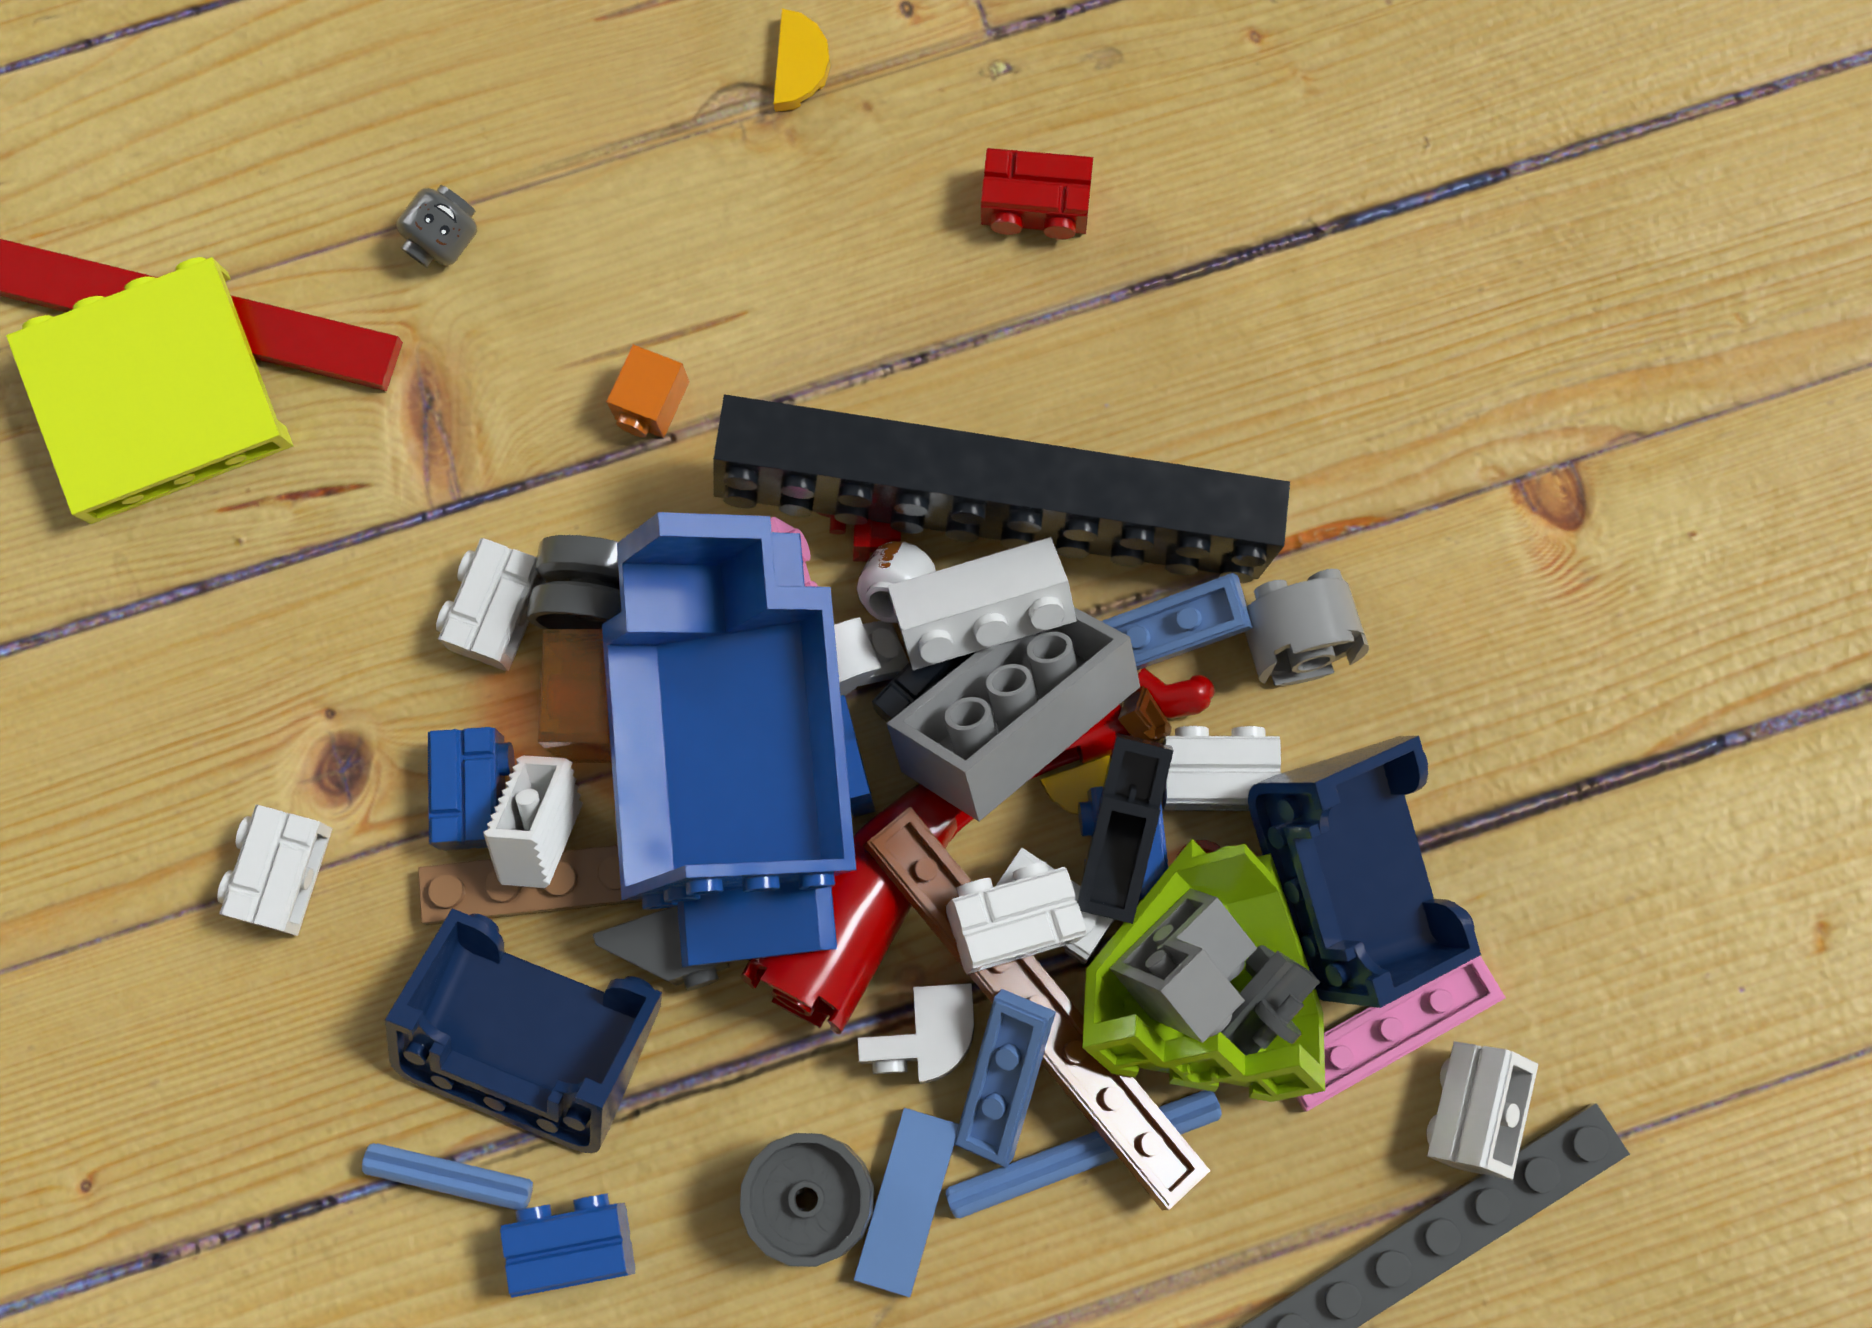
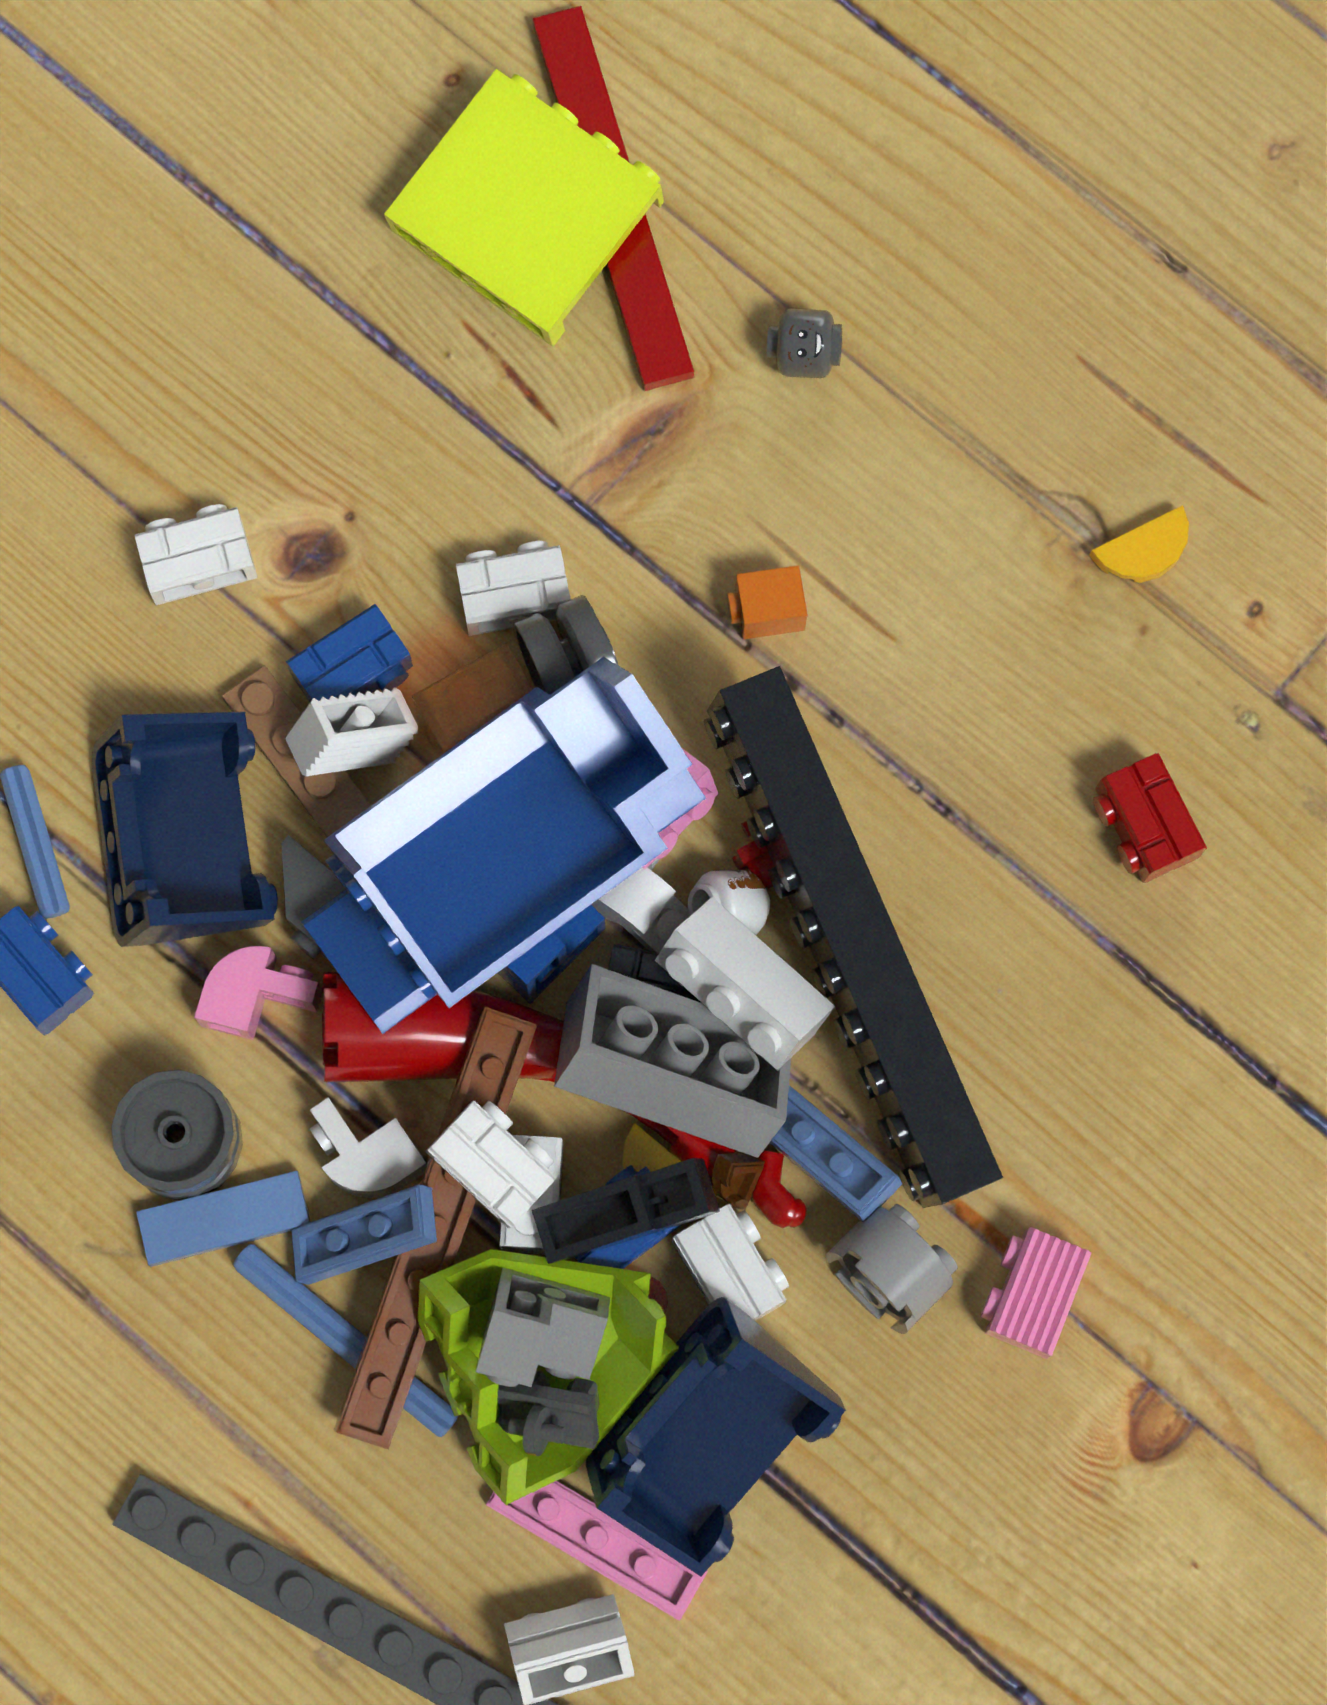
camera: 50 degrees right, 0 degrees up
(700, 1056) = (242, 982): none -> bright pink brick
(1390, 524) = (1035, 1292): none -> bright pink brick

